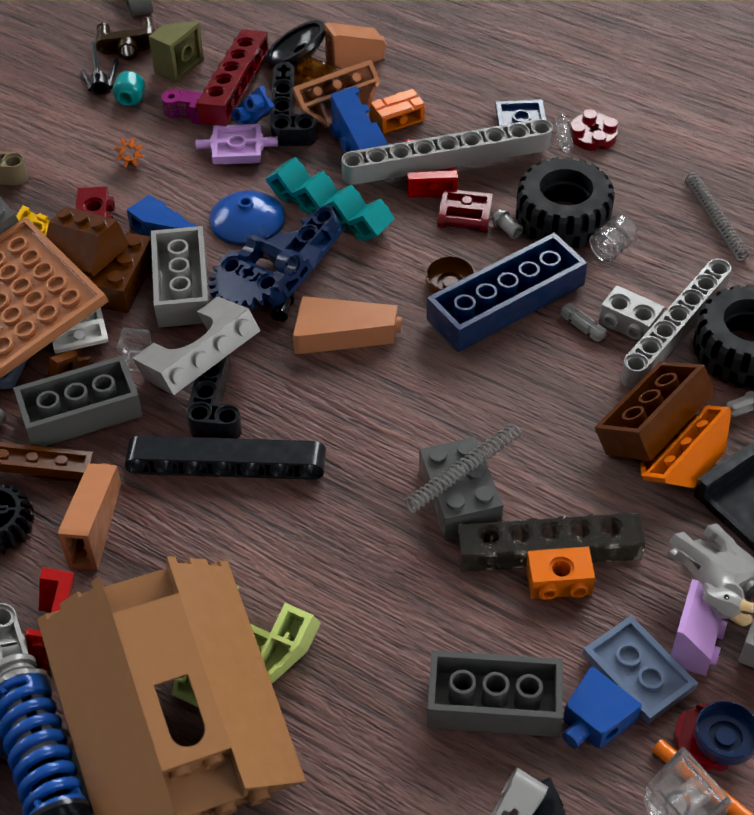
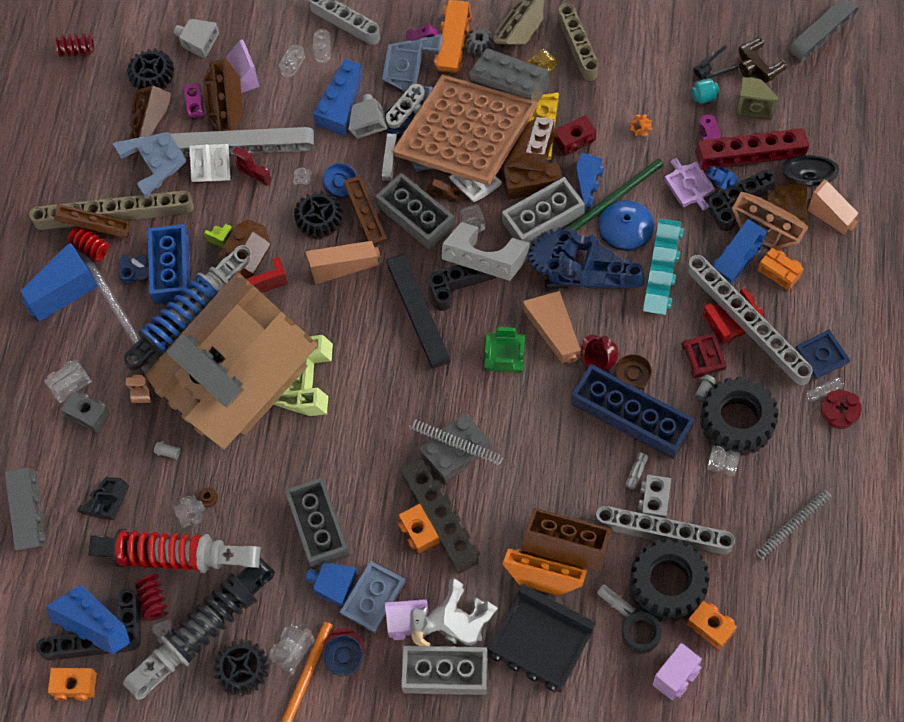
camera: 70 degrees right, 15 degrees up
(195, 701) = (206, 370): none -> dark grey wedge
(202, 210) = (616, 195): none -> dark green piece
(345, 387) = (504, 350): none -> green panel
(409, 291) = (599, 352): none -> dark red hair

